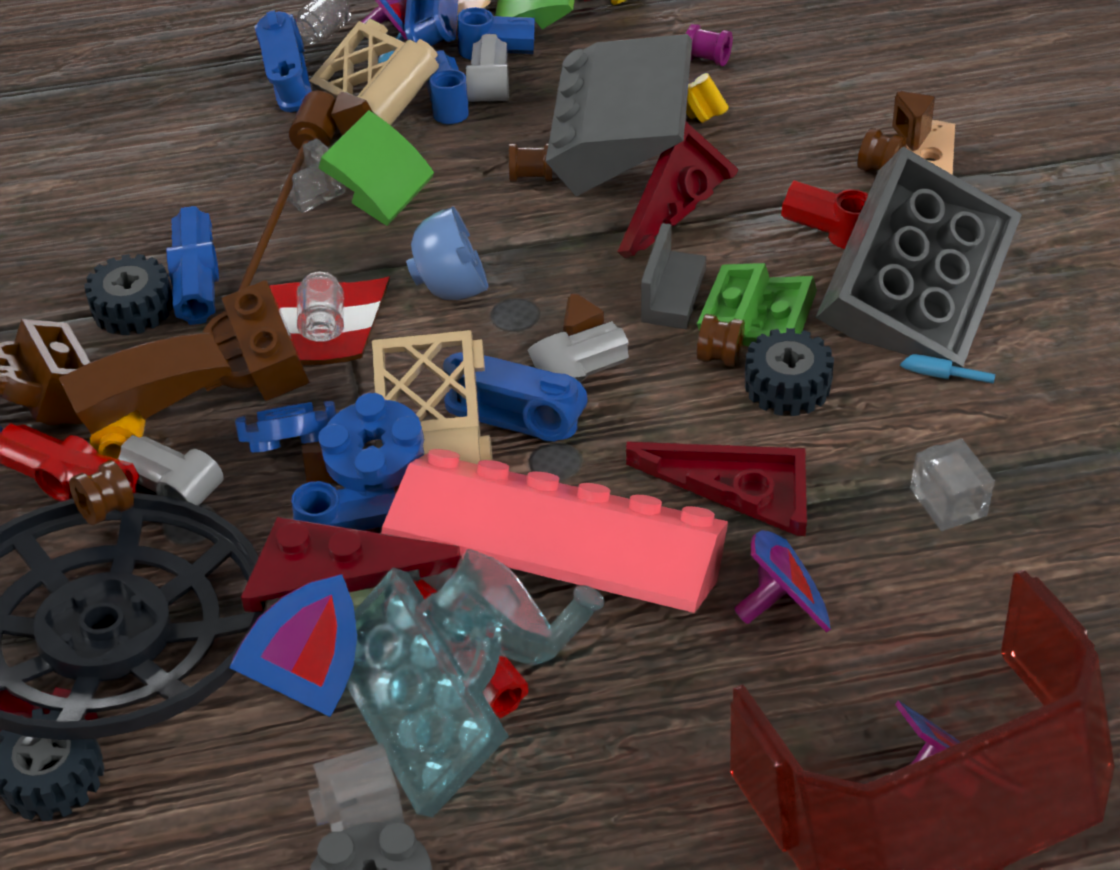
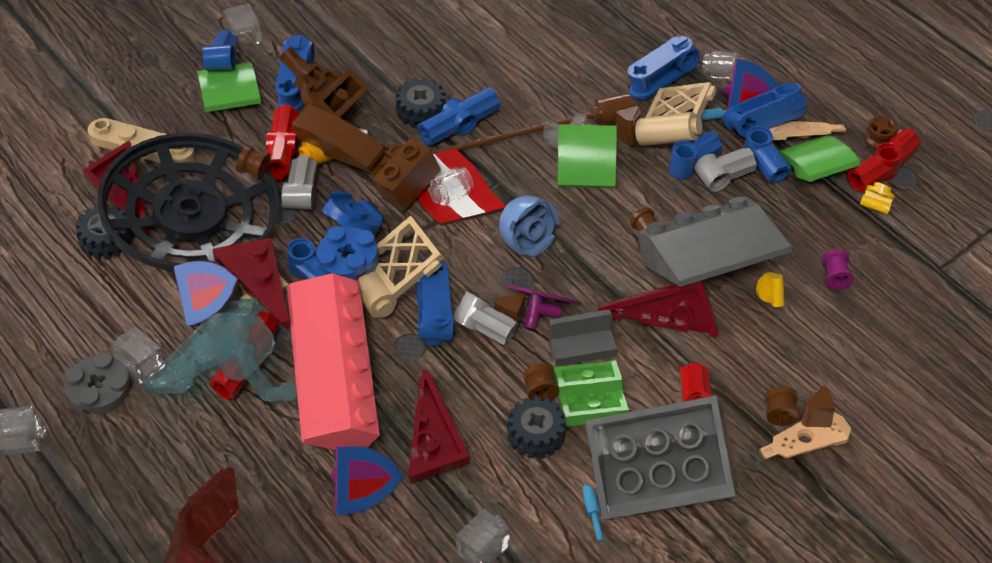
camera: 60 degrees right, 5 degrees up
(595, 295) = (538, 307): none -> magenta shield

